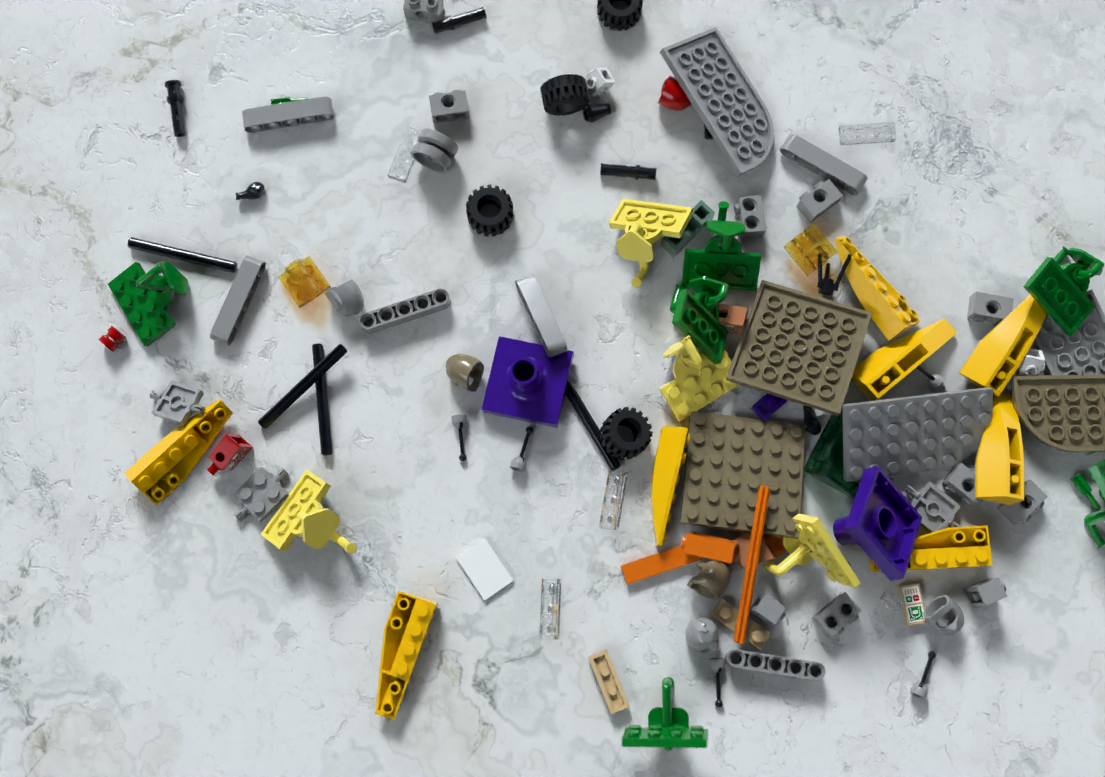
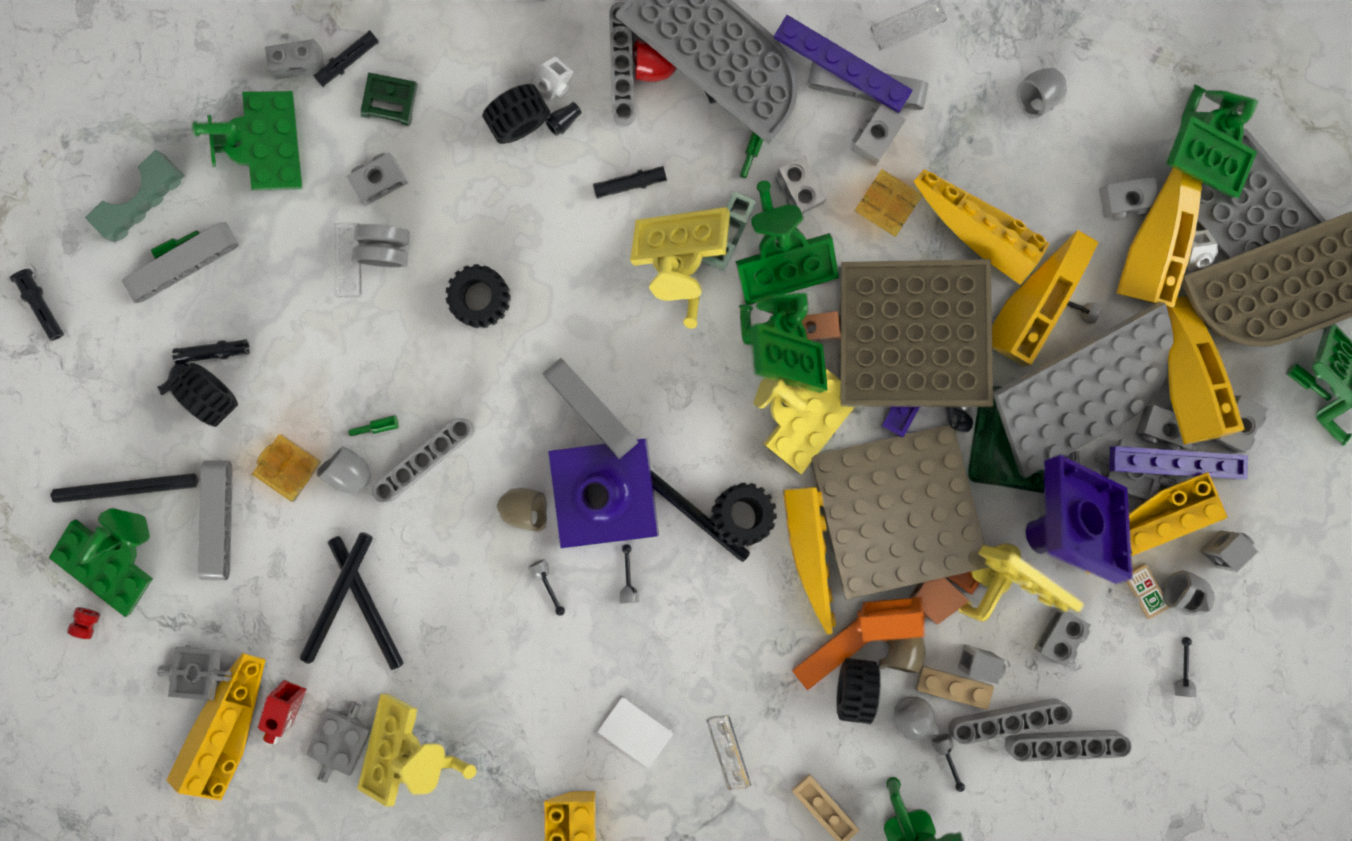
camera: 20 degrees left, 10 degrees up
(267, 207) = (203, 394): none -> black tyre
(292, 183) = (219, 350): none -> black pin
(295, 54) = (157, 179): none -> sand green arch
(377, 51) = (260, 139): none -> green plate
(381, 276) = (377, 426): none -> green axle
(480, 51) = (391, 91): none -> dark green plate
(613, 500) = (756, 598): clear plate -> none
(650, 98) = (621, 76): none -> light grey beam
(666, 594) = (858, 691): none -> black tyre
(724, 180) = (752, 151): none -> green axle
(751, 564) = (946, 619): orange axle -> none
(810, 142) = (842, 63): none -> dark purple plate
(822, 703) = (1078, 750): none -> light grey beam
(825, 285) = (923, 241): black plant -> none
(952, 208) = (1044, 84): none -> light grey piece
(966, 512) = (1178, 462): none -> plate

